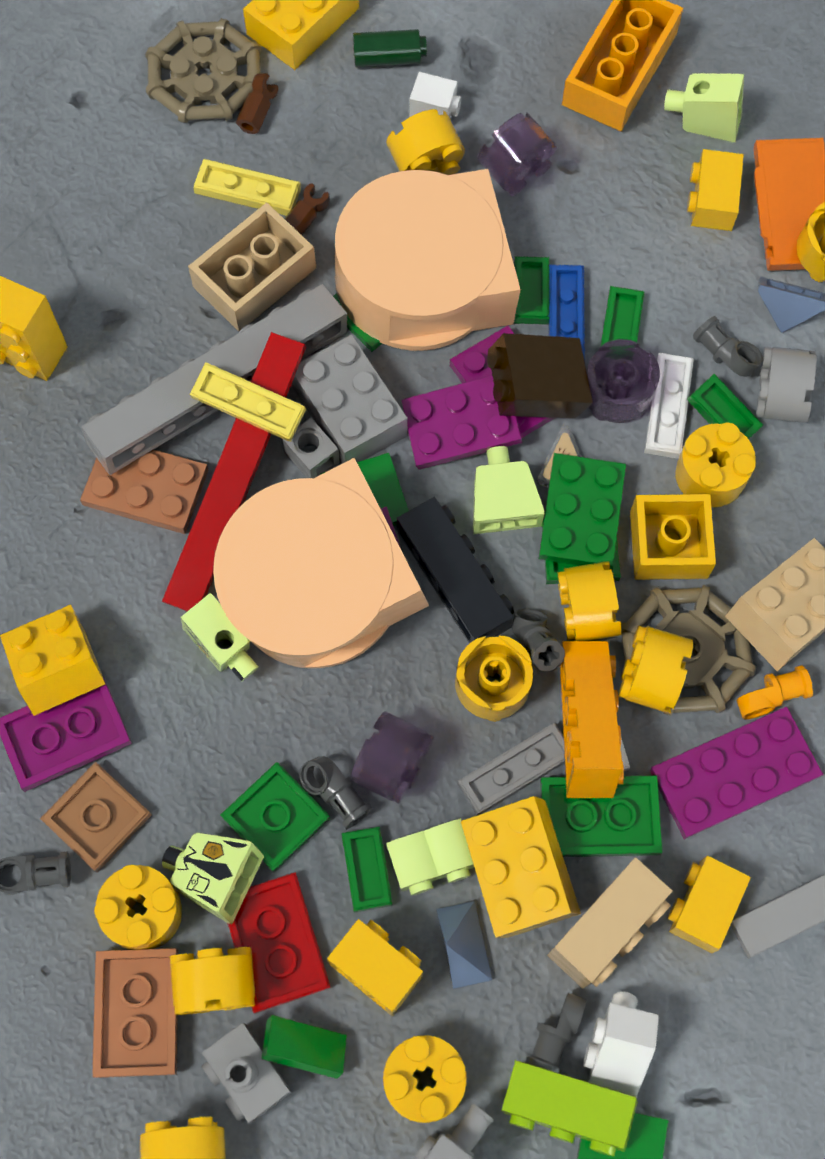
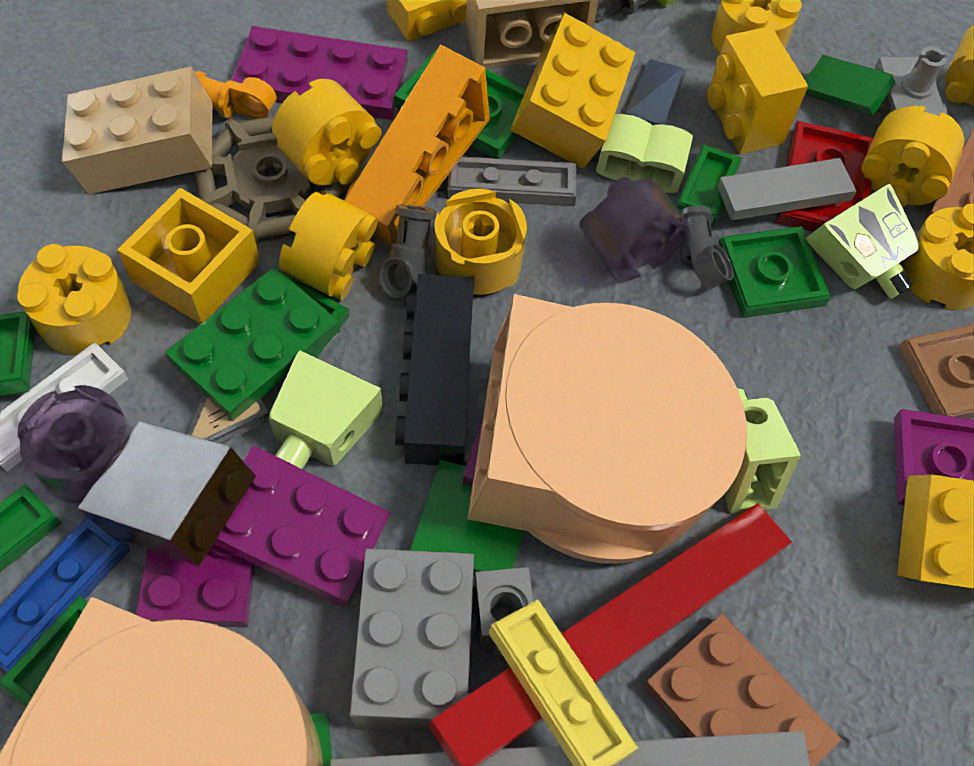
camera: 150 degrees left, 10 degrees down
(300, 890) = (786, 189): none -> light grey tile

